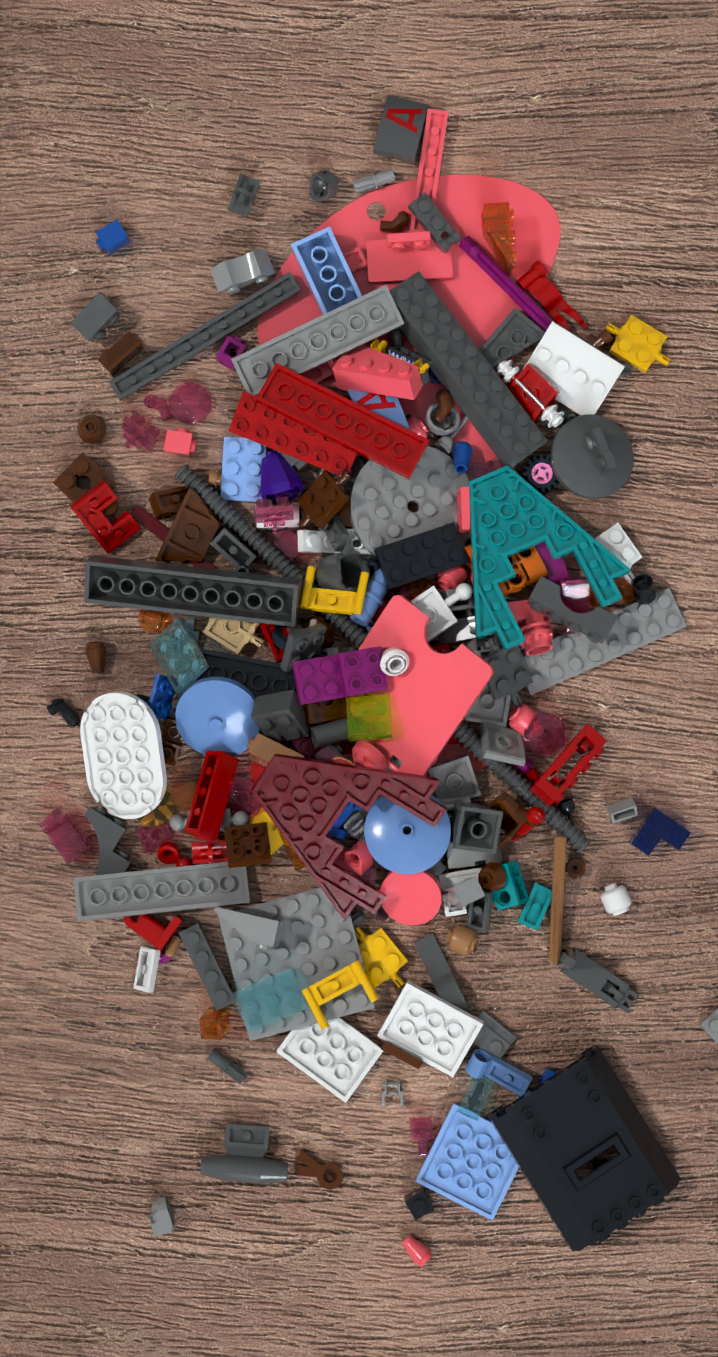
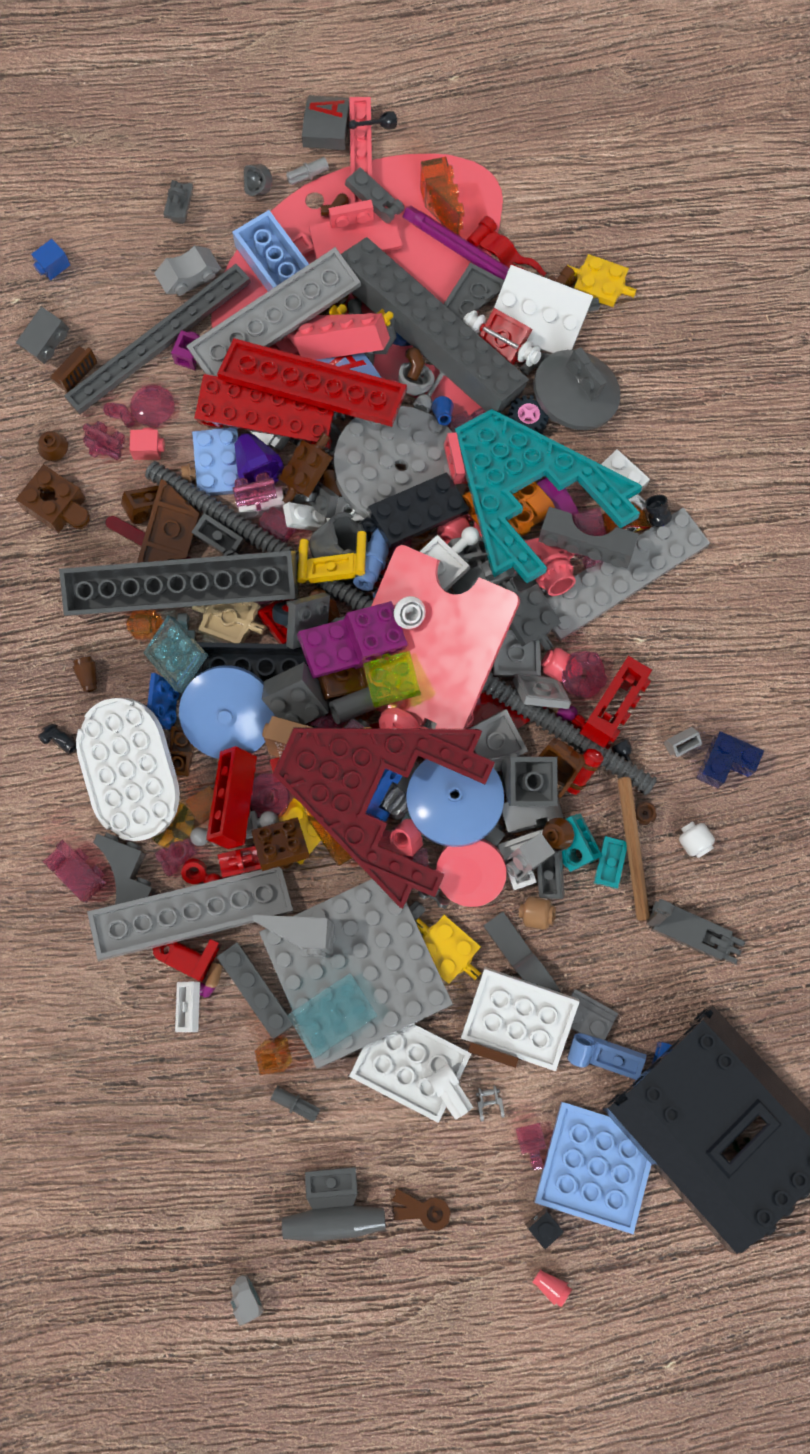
camera: 15 degrees left, 10 degrees down
(89, 510) = (57, 520): red plate -> none
(336, 985) = (405, 984): yellow plate -> none
(357, 1075) = (448, 1088): none -> white piece
(460, 138) = (387, 120): none -> black hinge
(475, 1097) = (586, 1090): clear light blue tile -> none

